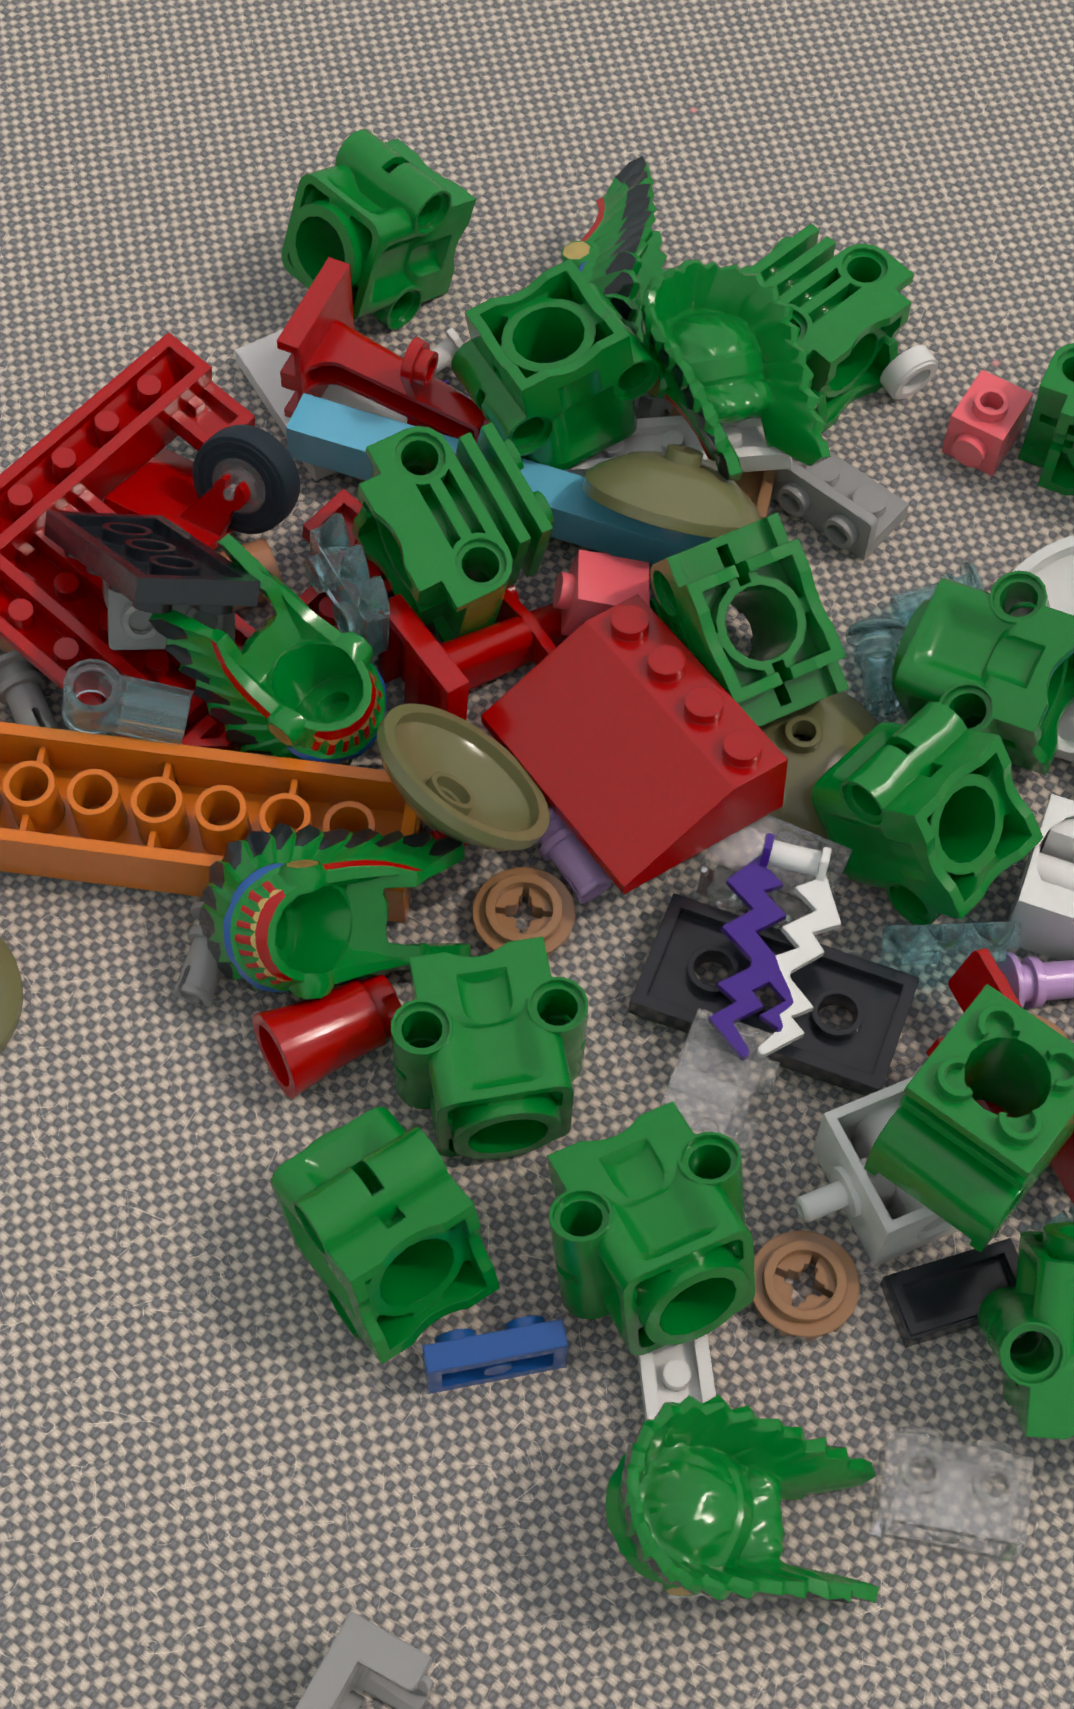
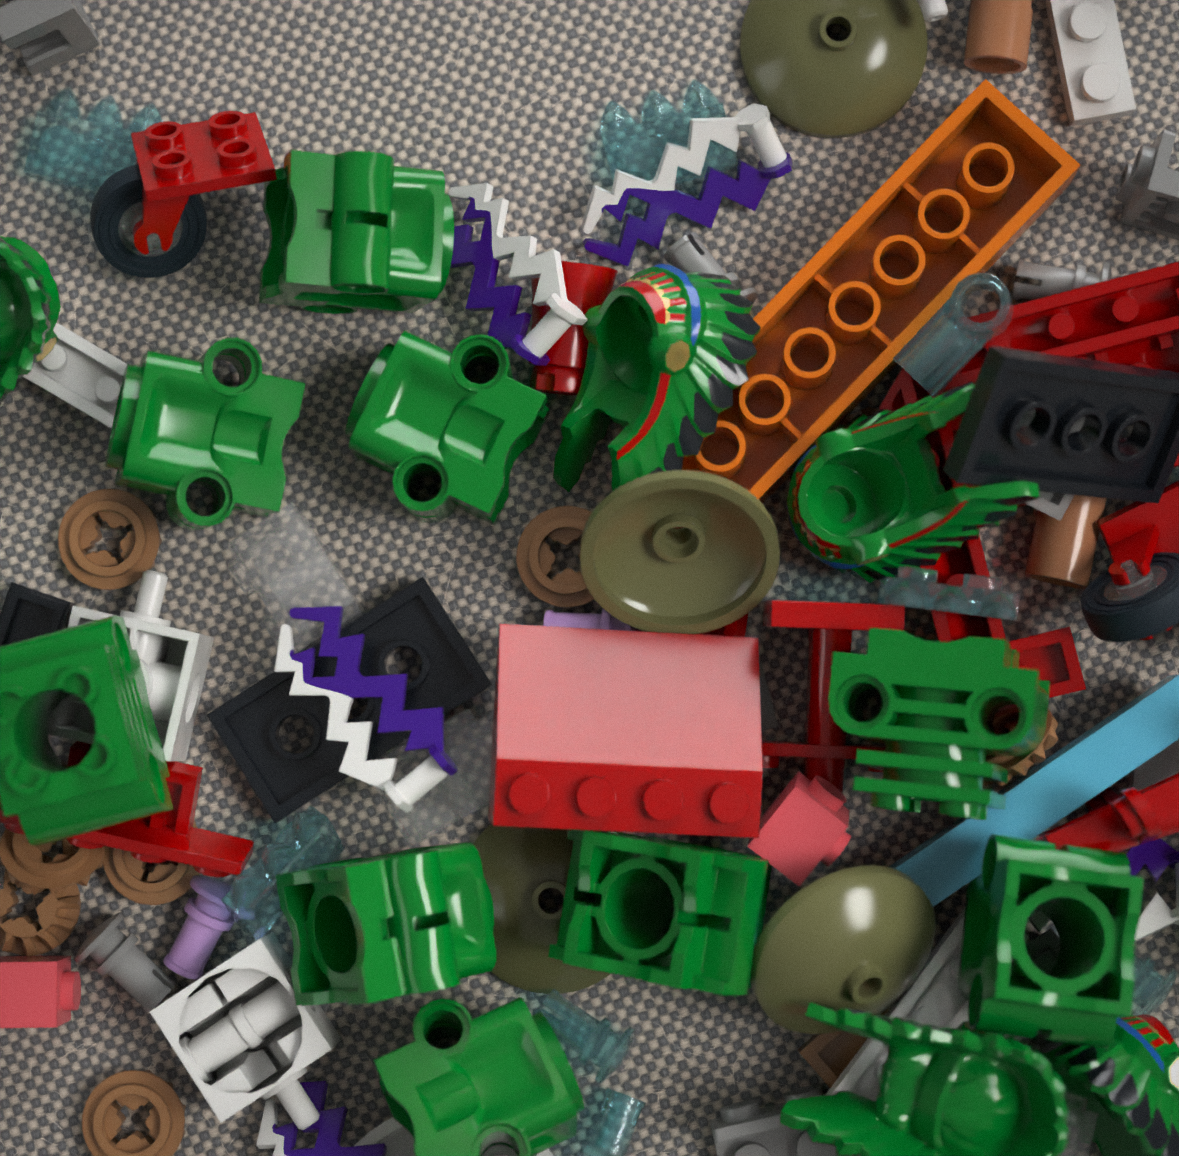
camera: 135 degrees right, 25 degrees up
(107, 1070) = (640, 146): none -> clear light blue plate
(157, 1032) = (665, 200): none -> piece
(373, 1060) = (504, 300): none -> piece
(433, 1431) = (152, 213): none -> red plate
(463, 1565) = (79, 150): none -> clear light blue plate
(521, 1349) = (210, 292): blue plate -> none

